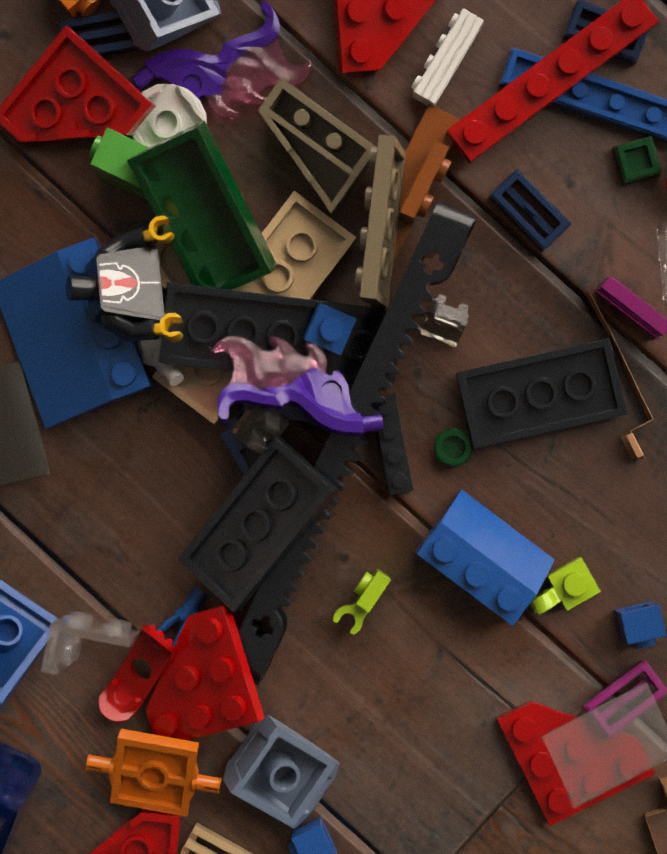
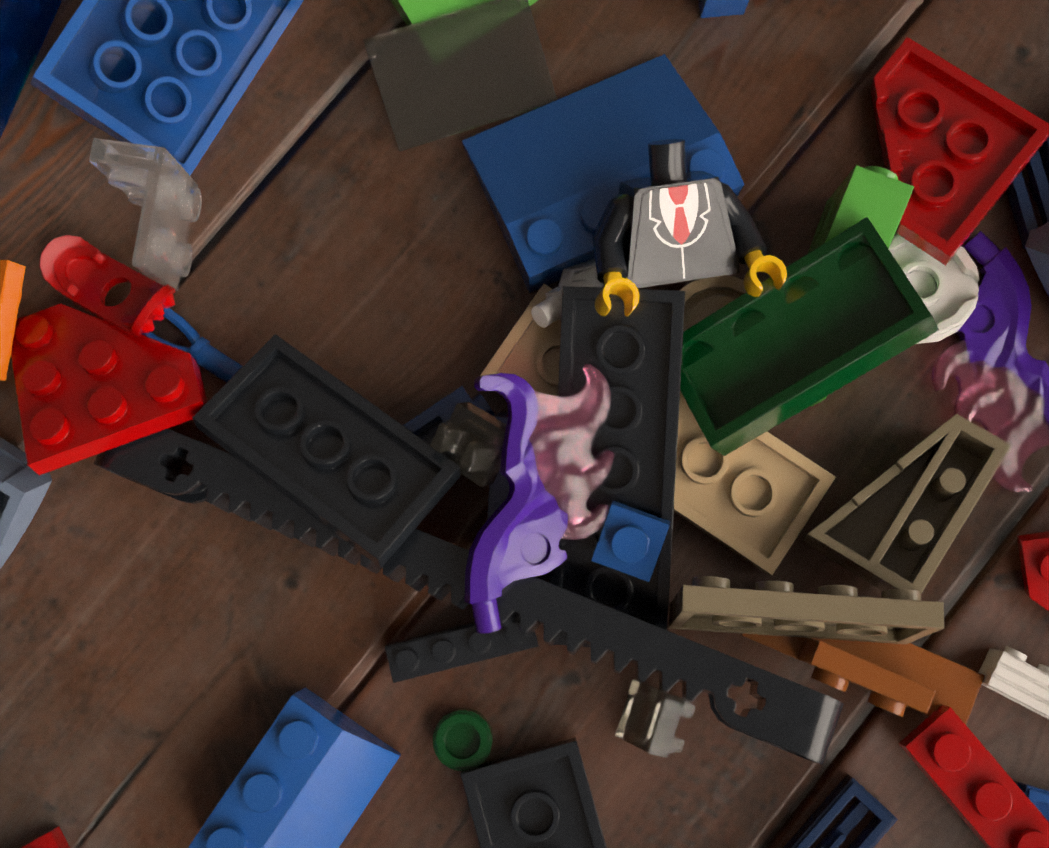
camera: 85 degrees right, 5 degrees down
(369, 591) = (238, 623): lime plate -> none

